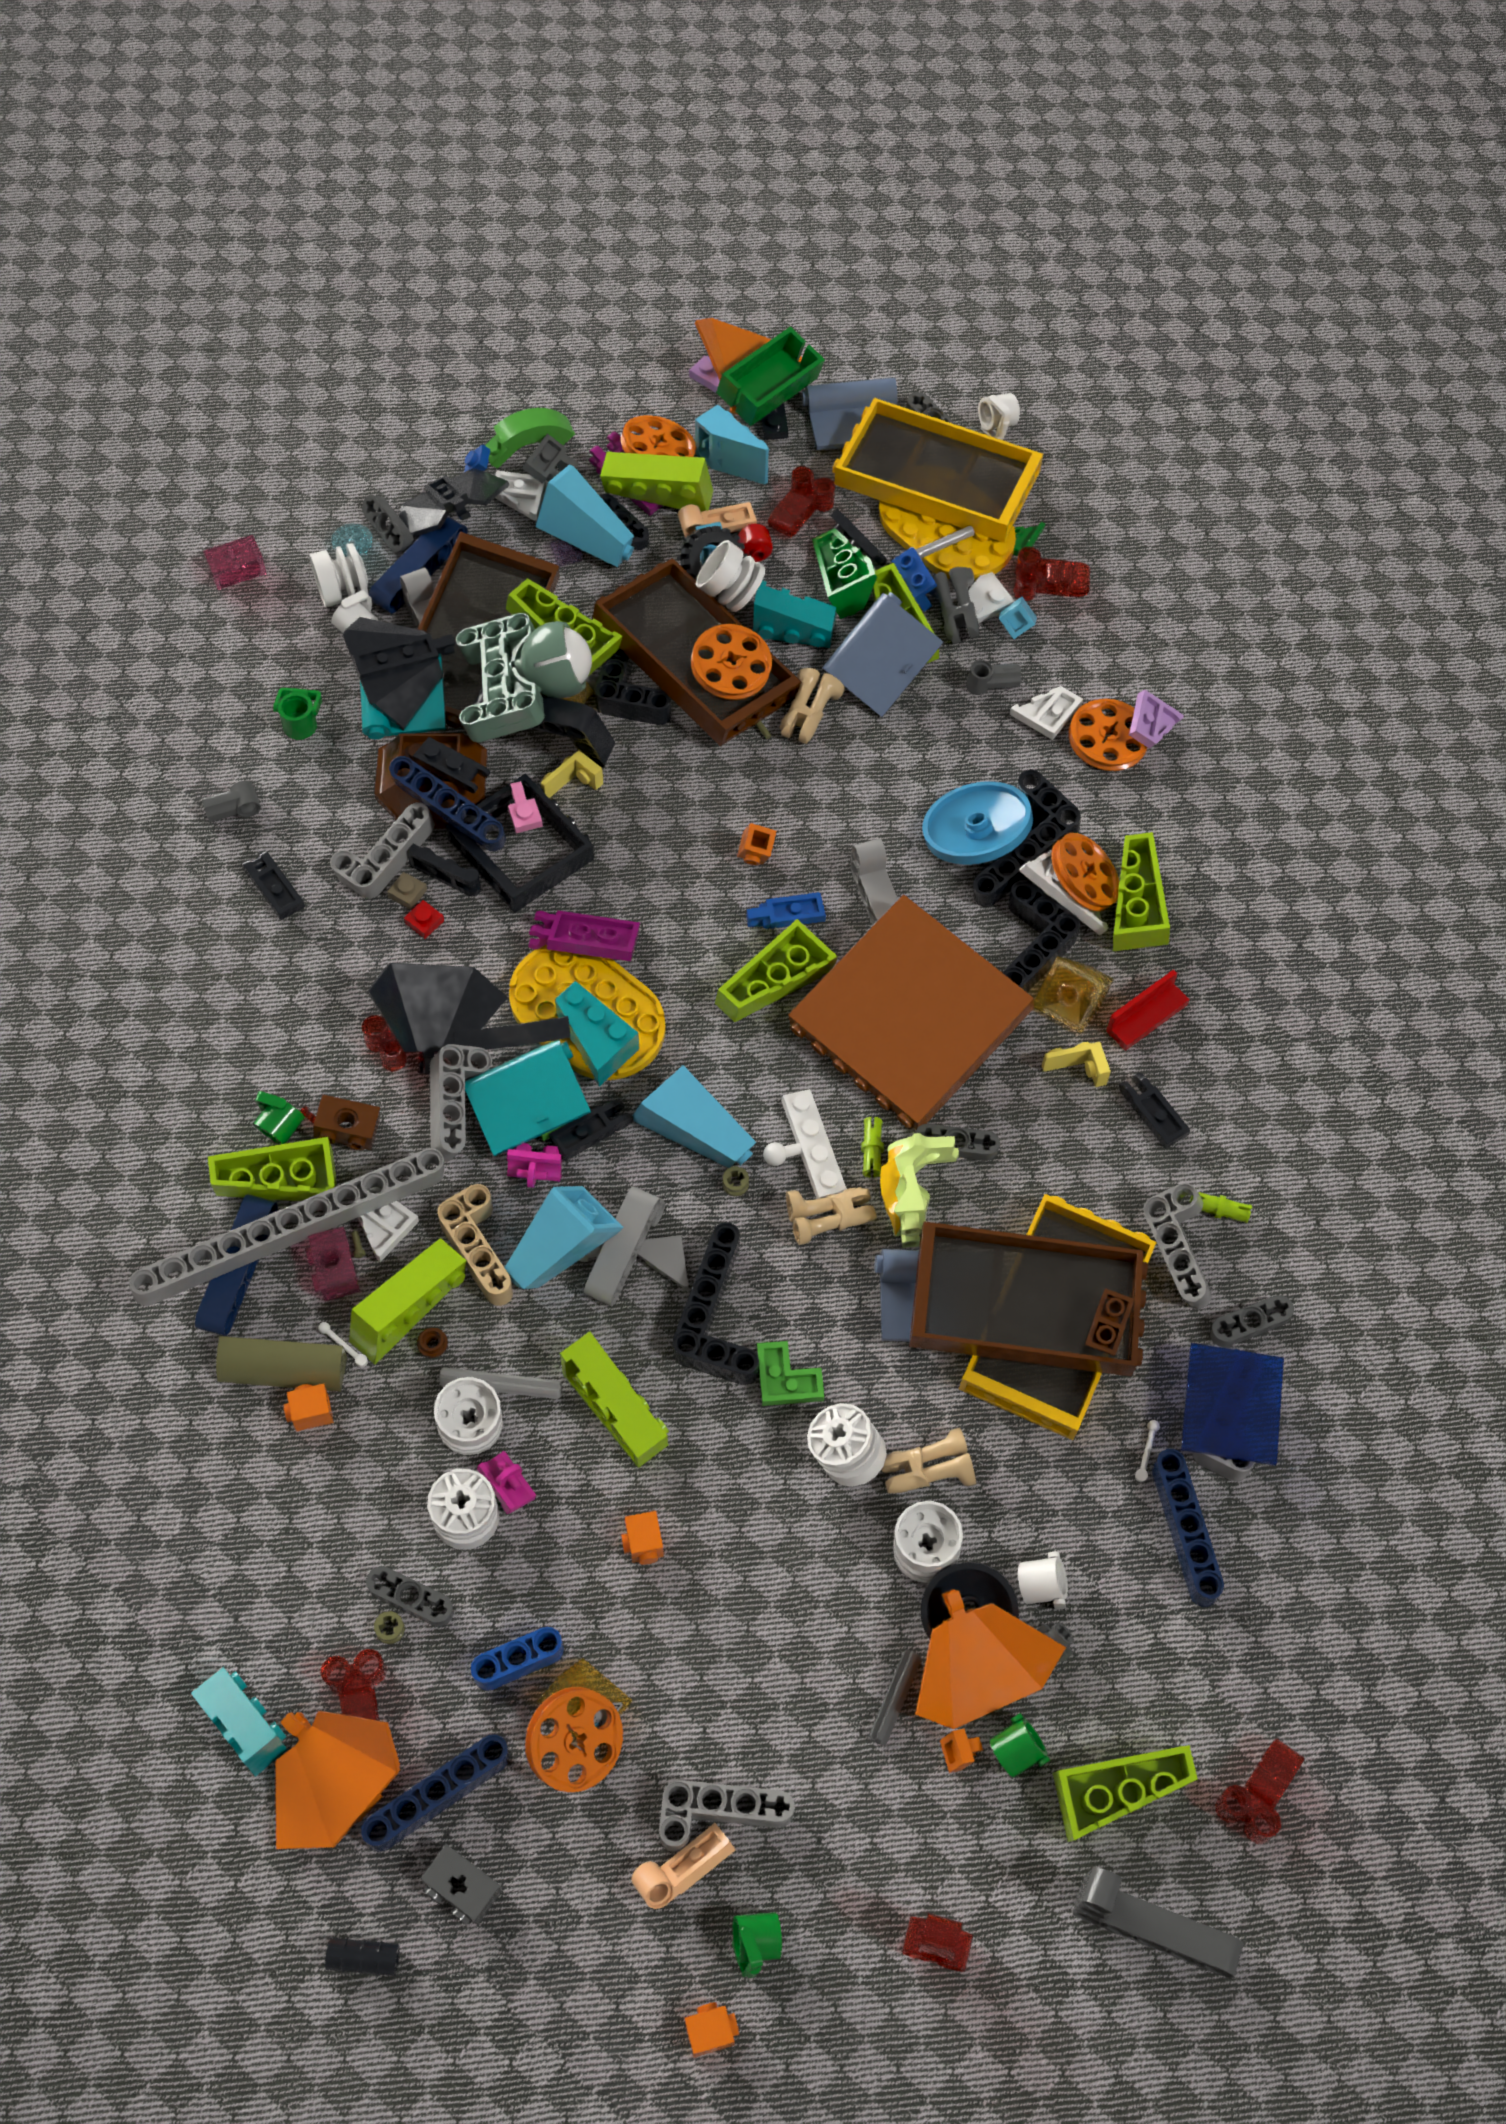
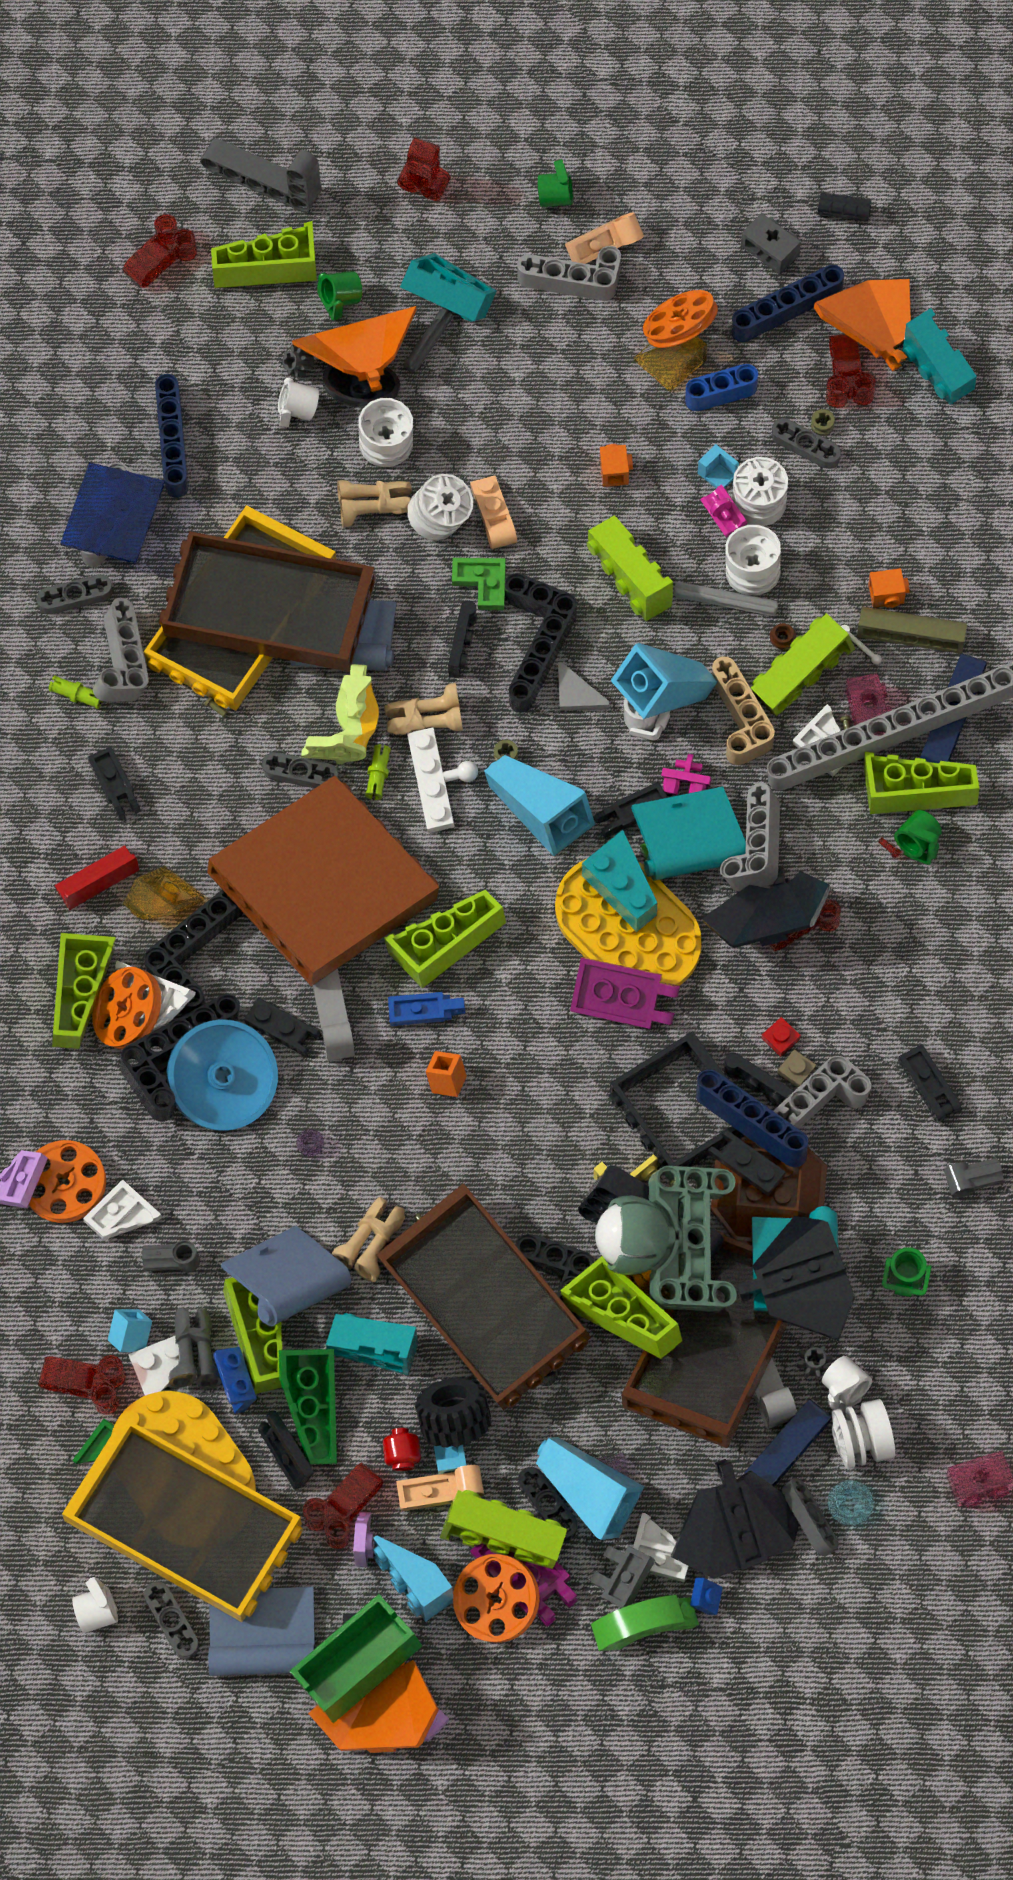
camera: 170 degrees left, 5 degrees up
(334, 1111) = (866, 838): reddish brown brick -> none
(515, 1034) = (700, 886): black sticker -> none
(517, 1548) = (717, 467): none -> medium azure panel
(523, 812) = (676, 1120): bright pink plate -> none
(618, 1254) = (598, 708): light grey beam -> none
(711, 2029) = (595, 141): orange brick -> none
(728, 672) = (435, 1268): orange wedge -> none
(730, 576) = (437, 1359): white wheel -> none
(778, 472) = (363, 1540): none -> lavender wing
(783, 1464) = (494, 512): none -> light nougat plate
(799, 1303) = (462, 637): none -> black plate
(879, 1762) = (448, 287): none -> teal wedge
(881, 779) = (306, 1135): none -> clear purple plate
(929, 888) = (280, 1026): none -> black hinge
(945, 541) = (199, 1422): light grey bar -> none
(959, 1750) = (384, 297): orange tile -> none
(1088, 1053) = (169, 838): light yellow bracket -> none
(1109, 1322) = (206, 562): reddish brown slope -> none
(1141, 1474) = (198, 485): white hinge -> none

